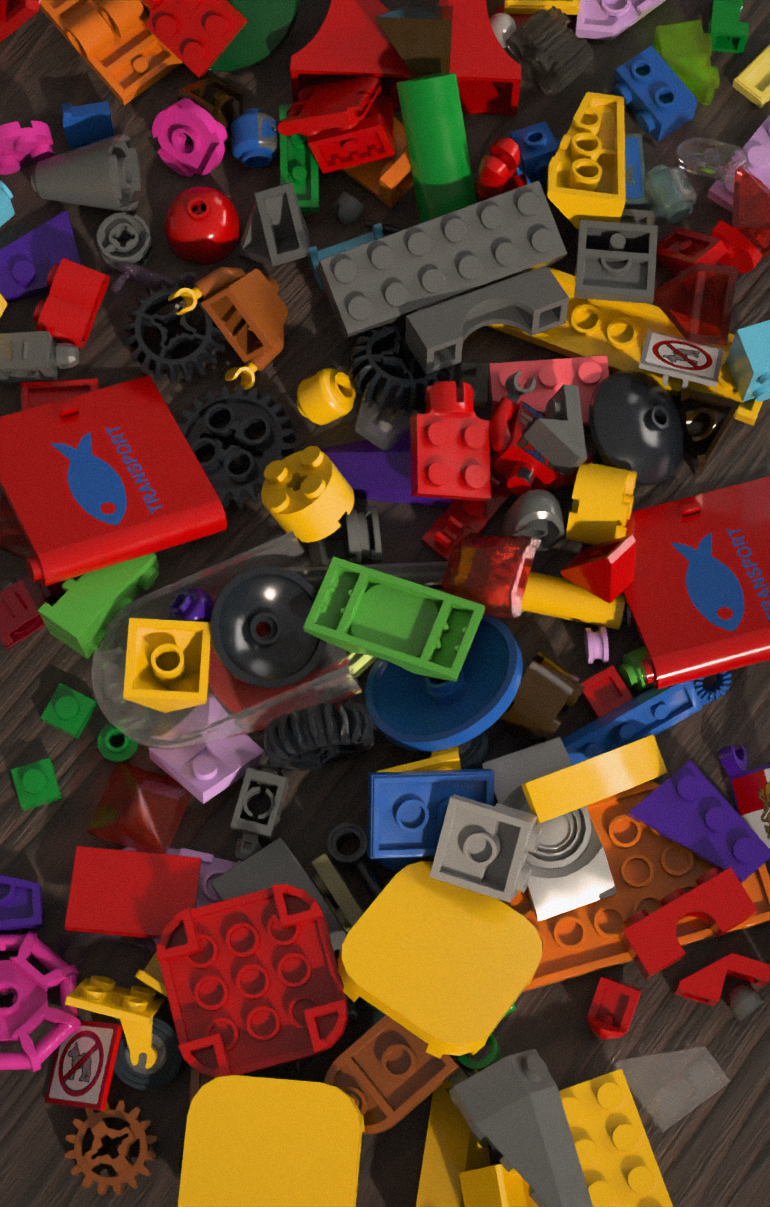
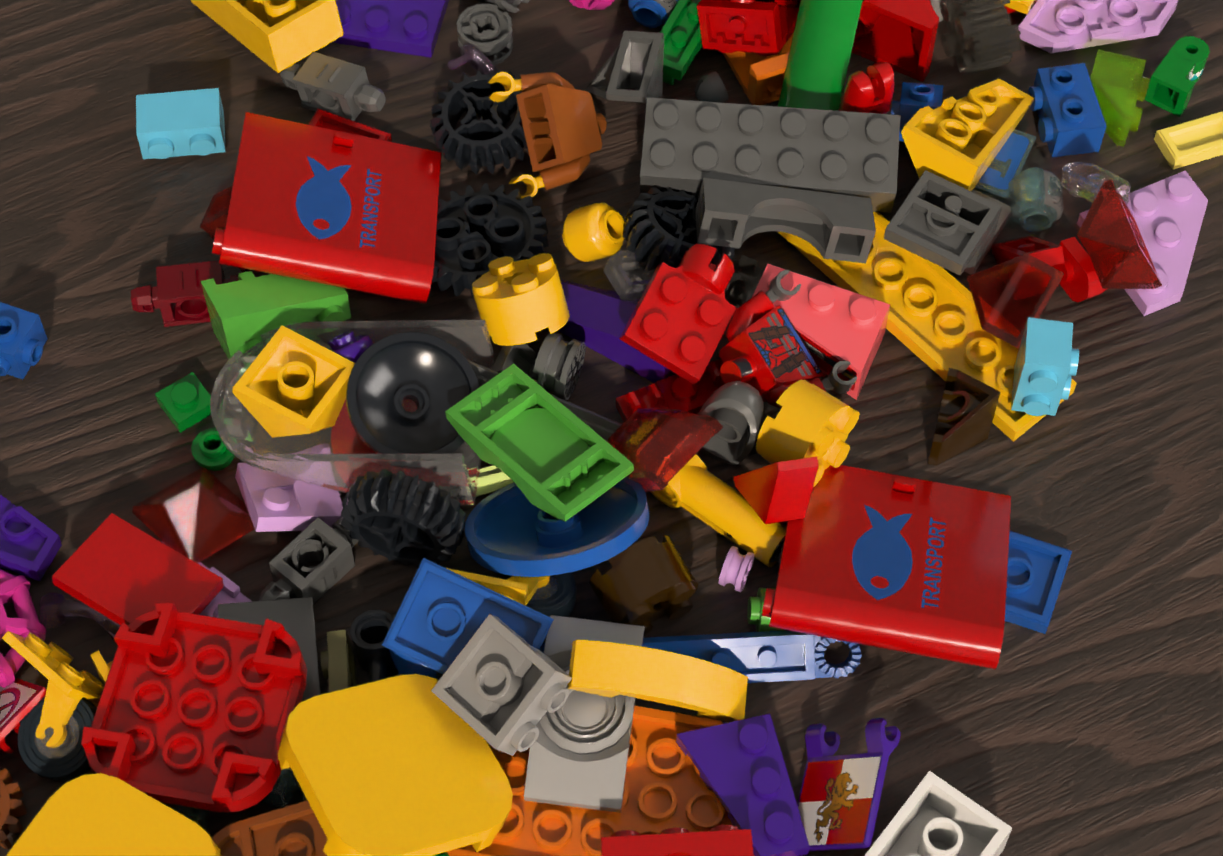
camera: 25 degrees right, 15 degrees down
(36, 784) = (115, 452): green plate -> none
(71, 303) = (404, 58): red brick -> none
(202, 225) = (566, 44): red cylinder -> none
(562, 433) = (797, 341): dark grey slope -> none
(605, 692) = (720, 613): red plate -> none
(637, 426) = (889, 381): black dish -> none
(681, 359) = (963, 338): piece -> none

